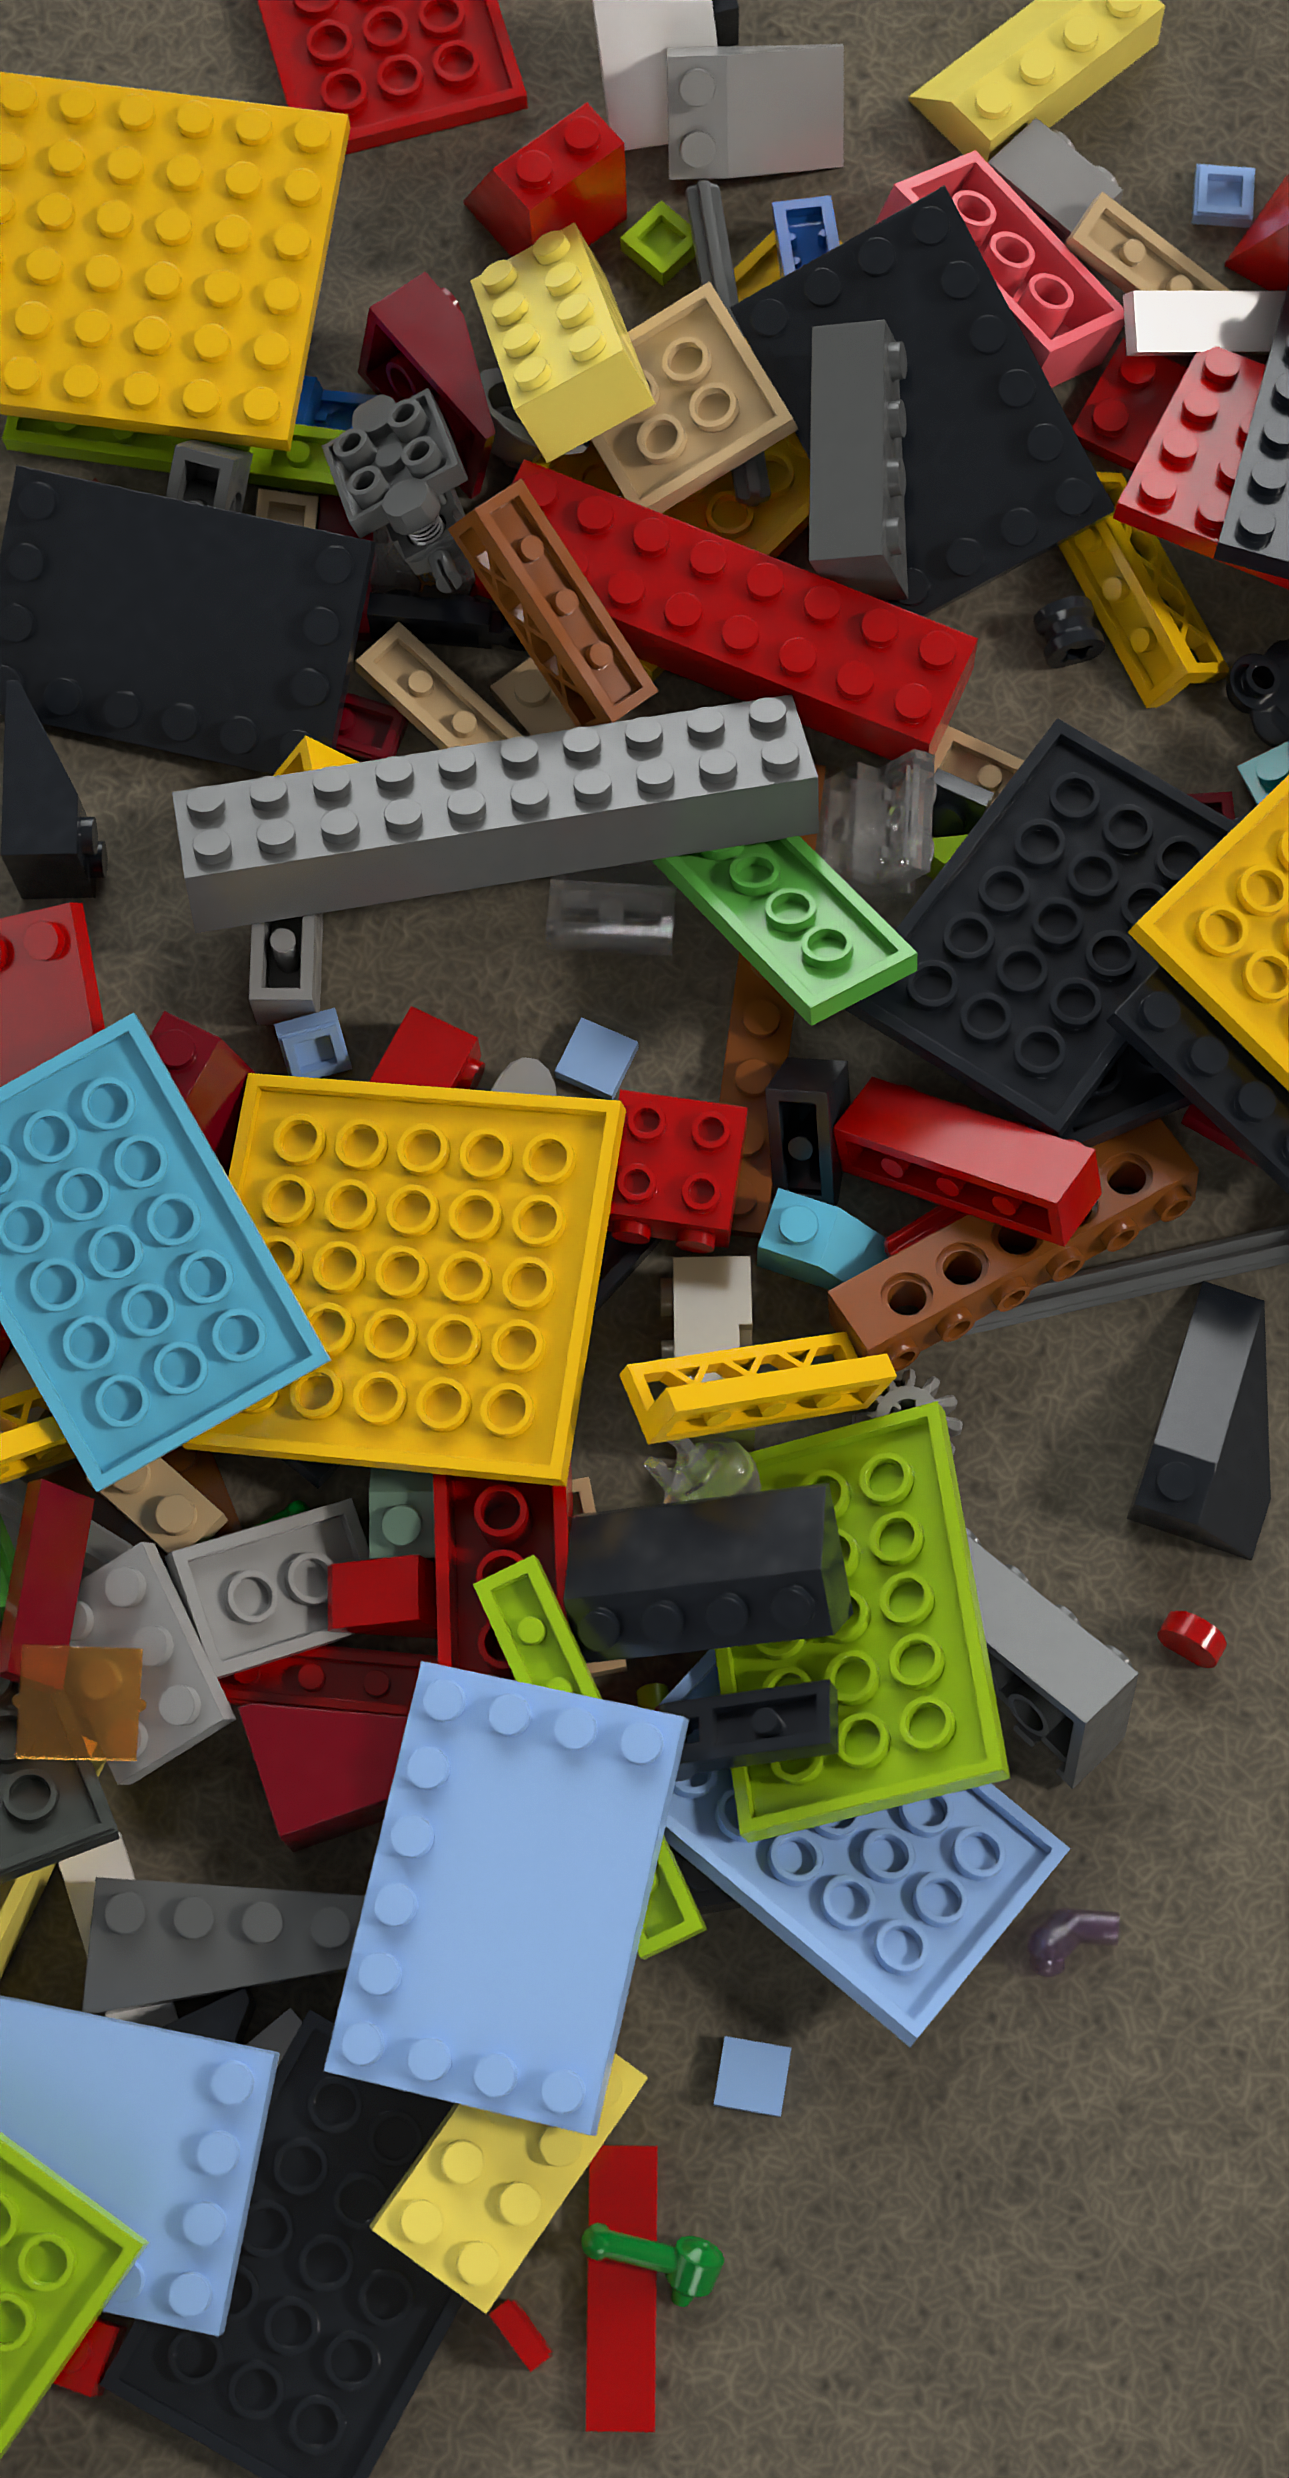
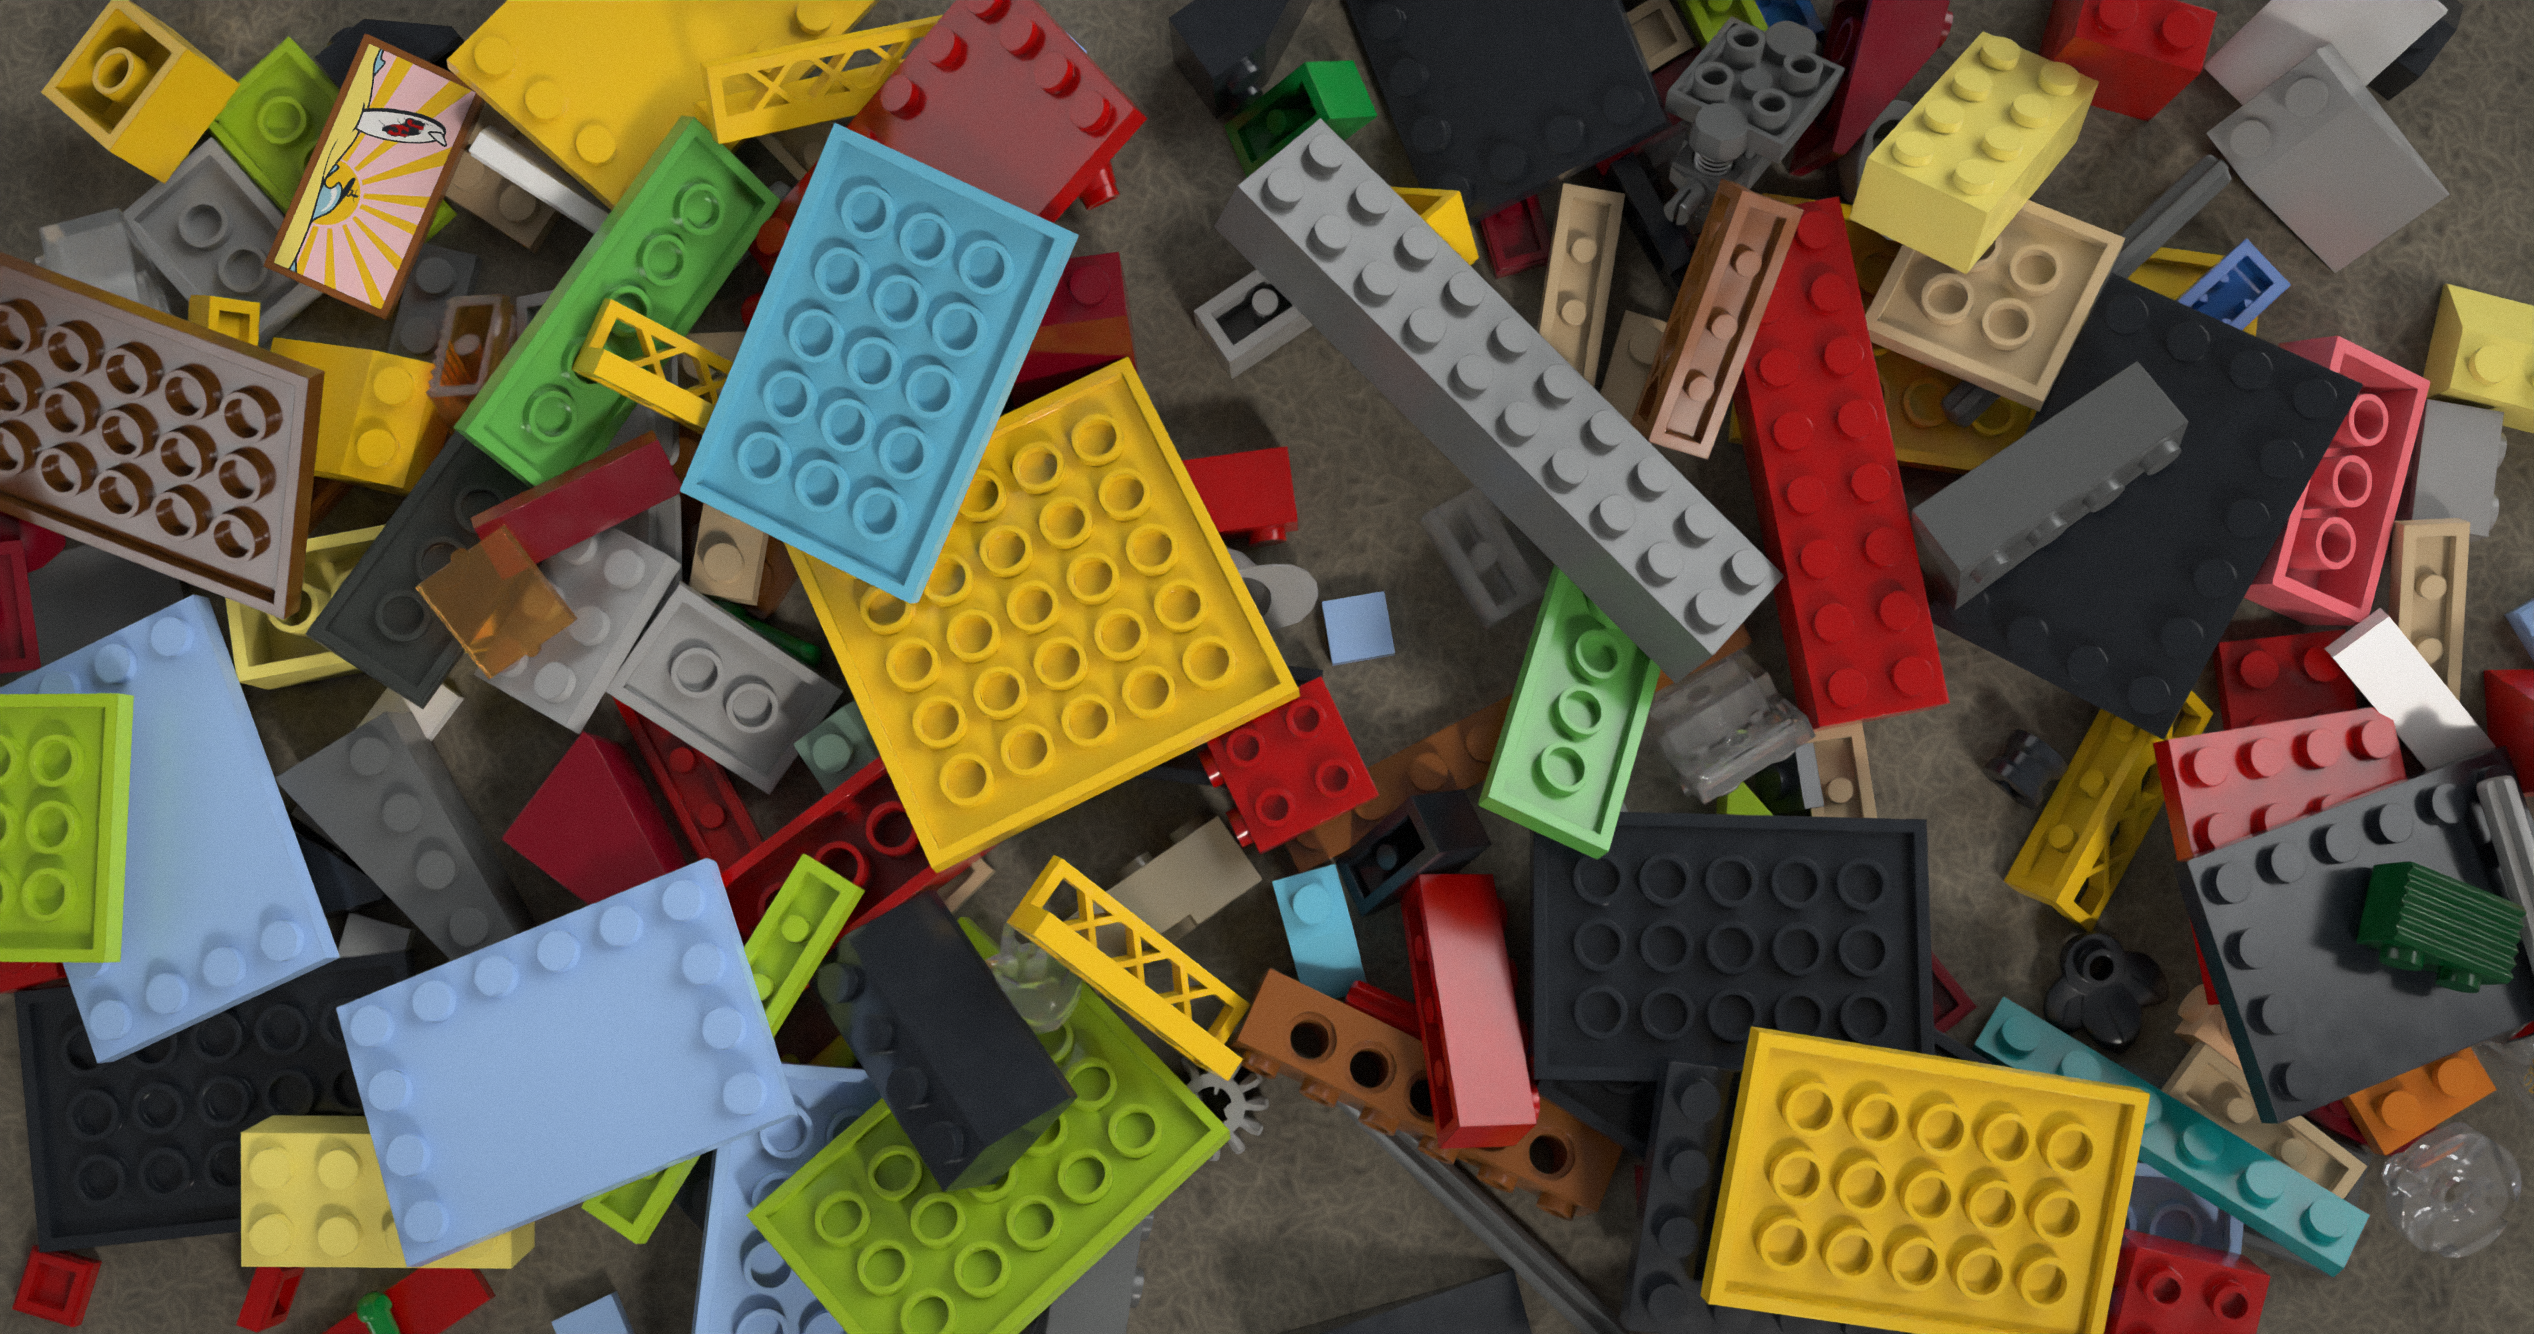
camera: 55 degrees right, 10 degrees up
(144, 829) = (1289, 108): none -> green slope
(313, 1045) = (1204, 388): light blue tile -> none
(383, 1597) = (771, 774): red slope -> none
(659, 243) = (2142, 166): lime plate -> none
(758, 1726) = (839, 1169): black plate -> none

